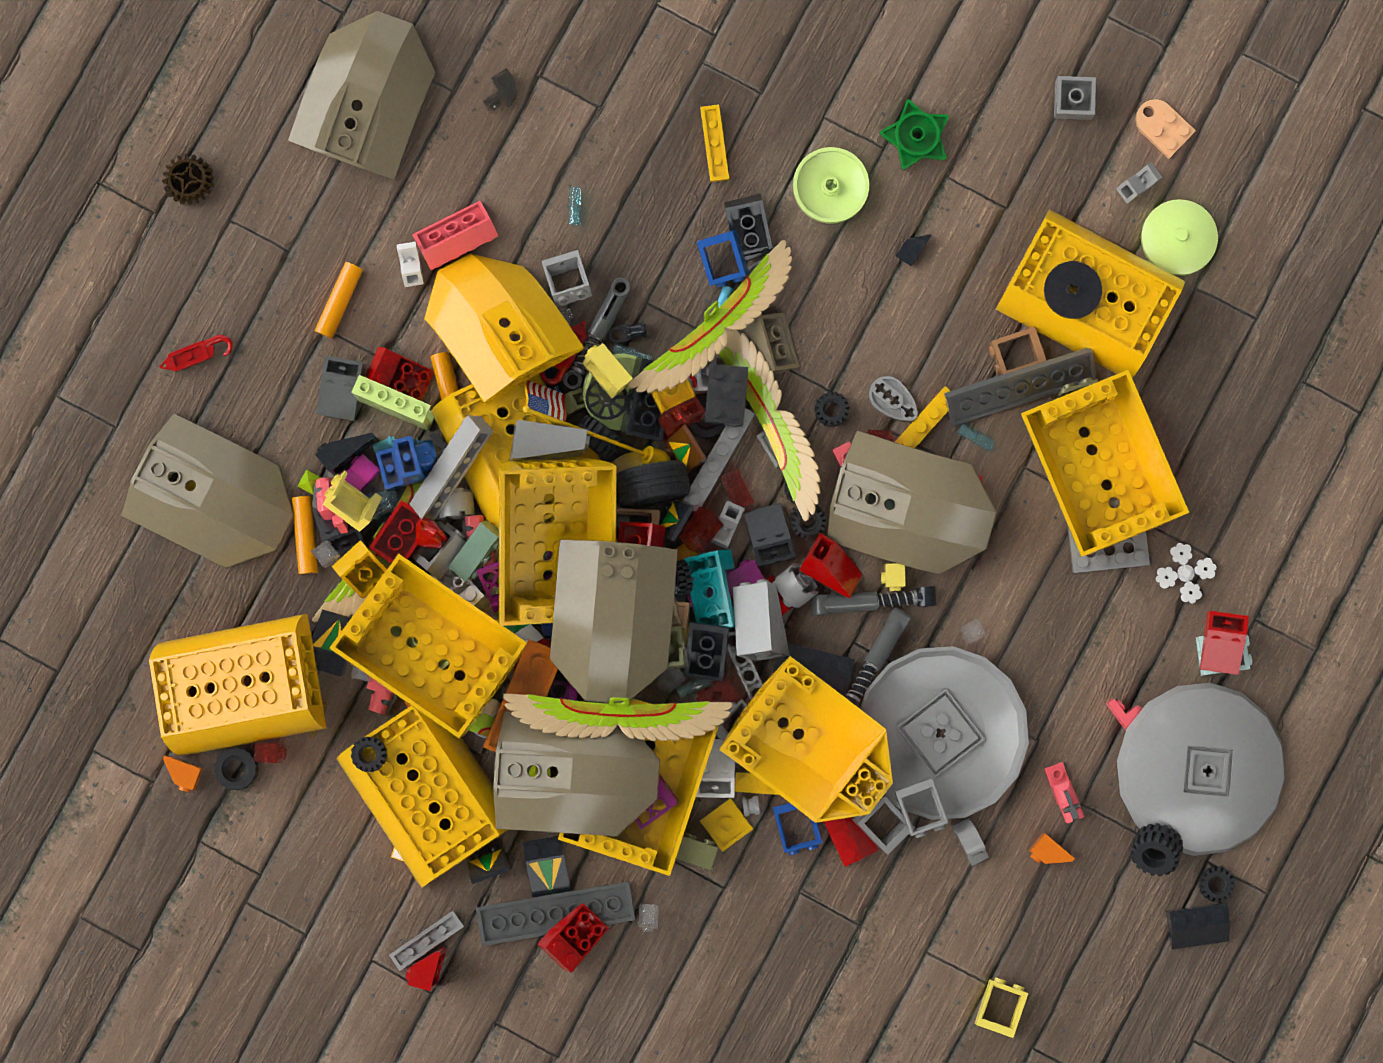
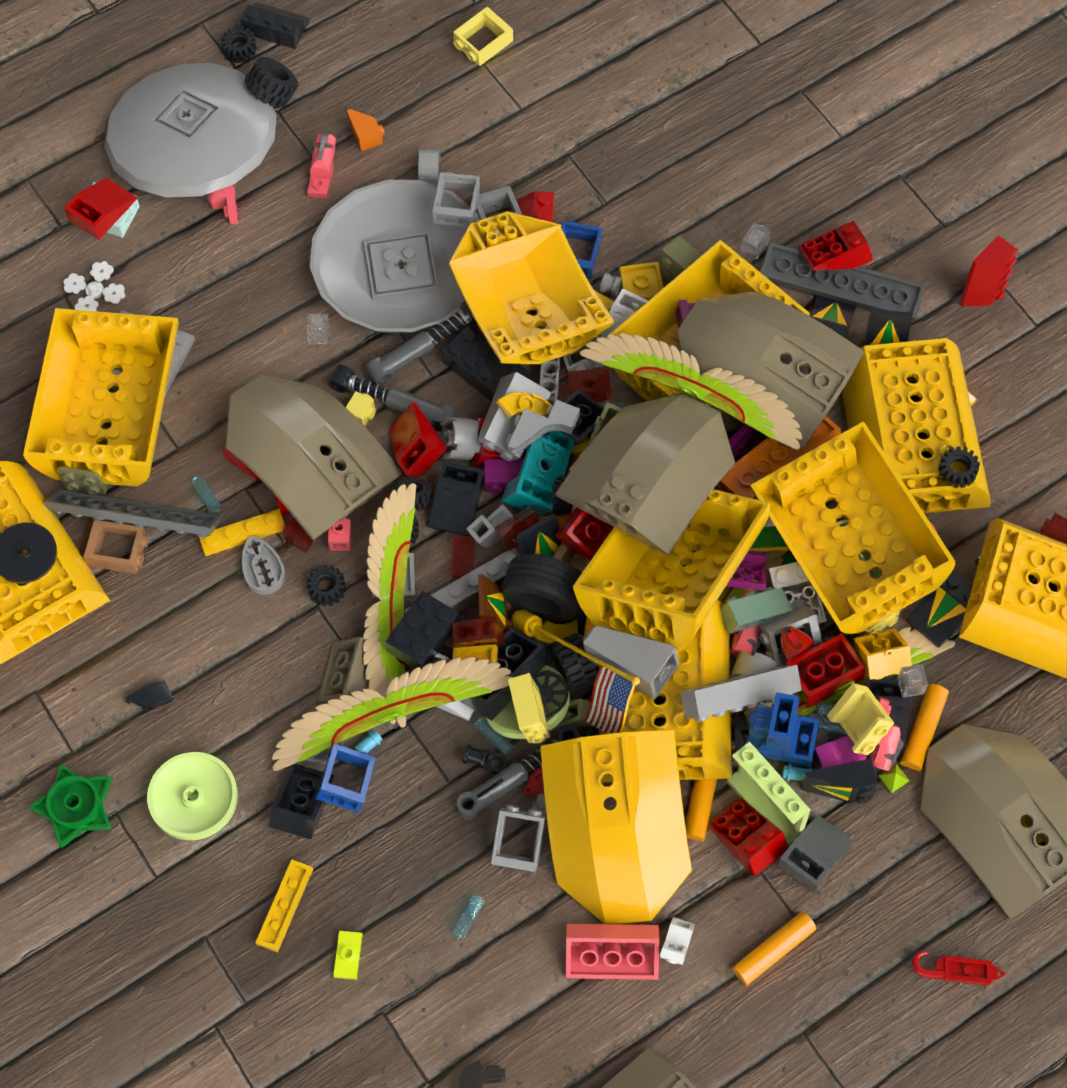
camera: 150 degrees left, 20 degrees down
(426, 940) = (976, 314): light grey plate -> none
(647, 133) = (348, 955): none -> neon yellow plate
(733, 610) = (532, 425): none -> light grey arch
(750, 628) = (516, 402): none -> yellow tile

